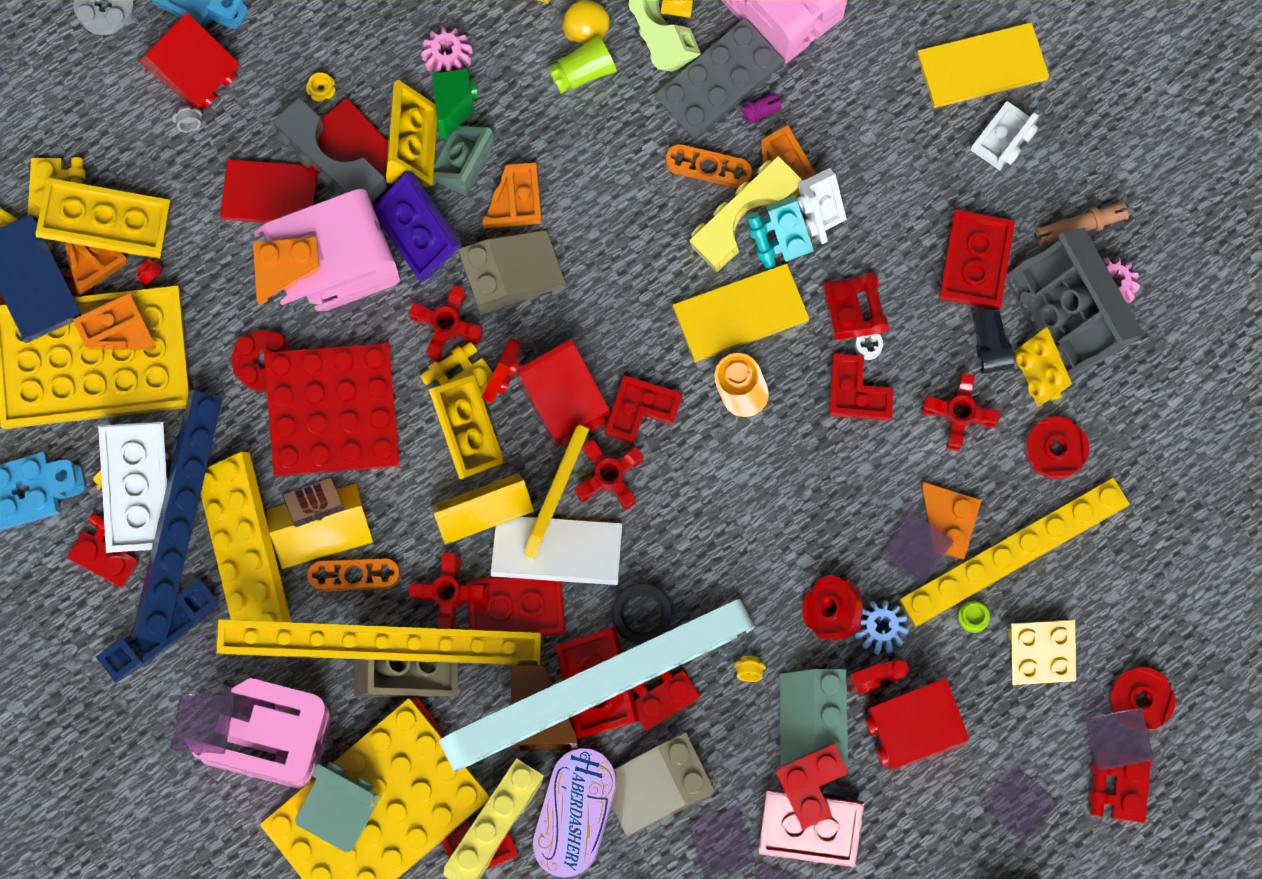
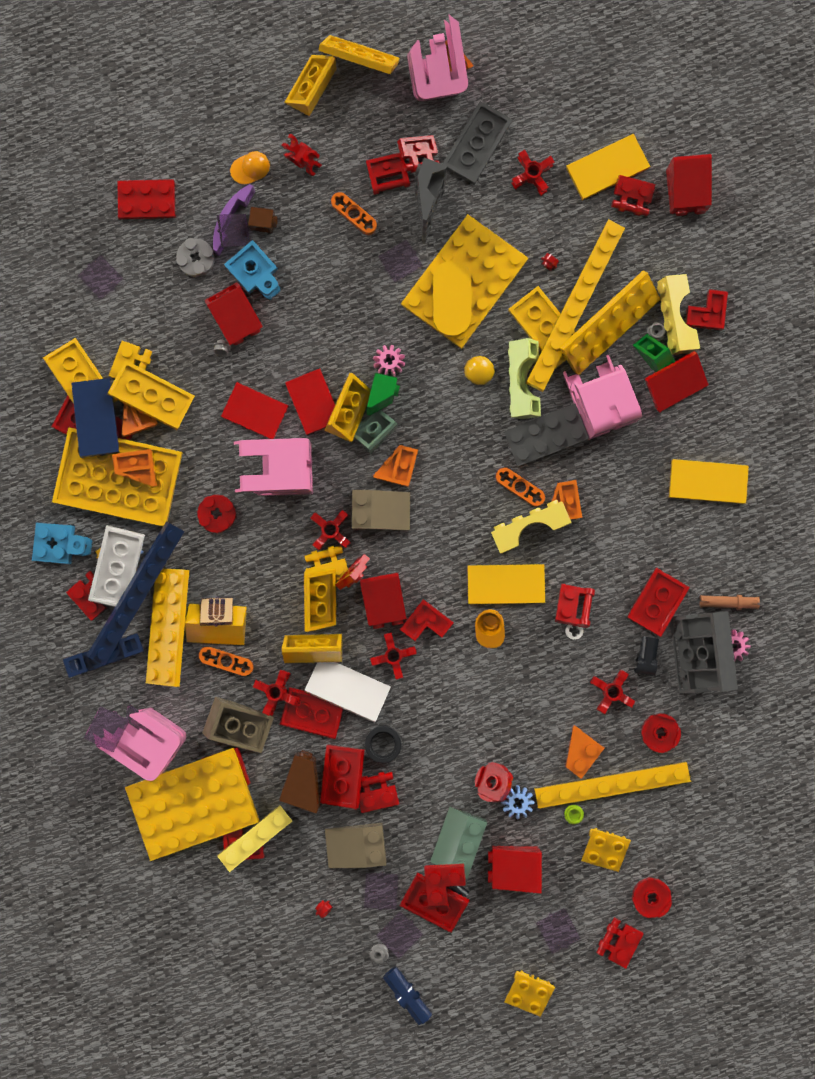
camera: 20 degrees right, 10 degrees up
(149, 271) = (168, 436): red plate -> none
(282, 264) = (243, 470): orange wing -> none
(302, 131) = (286, 381): dark grey arch -> none
(317, 80) = (307, 350): yellow plate -> none
(331, 410) = (245, 559): red plate -> none
(337, 807) = (169, 797): sand green bracket -> none
(375, 642) = (223, 713): yellow plate -> none
(416, 226) = (333, 465): dark purple tile -> none
(556, 491) = (357, 658): yellow tile -> none
(574, 812) = (303, 845): lavender tile -> none
(582, 65) = (466, 398): lime plant -> none
(595, 685) = (339, 784): light aqua beam -> none
(751, 665) = (433, 798): yellow plate -> none
(756, 110) = (564, 462): magenta pin -> none
(789, 229) = (552, 547): plate -> none
(821, 203) = (577, 537): white bracket -> none
(849, 395) = (551, 658): red plate -> none
(869, 678) = (498, 832): red plate -> none
(916, 548) = (556, 763): clear purple piece -> none
(1004, 135) = (704, 531): white bracket -> none
(1042, 368) = (670, 684): yellow hinge -> none
(1119, 739) = (629, 917): clear purple piece -> none

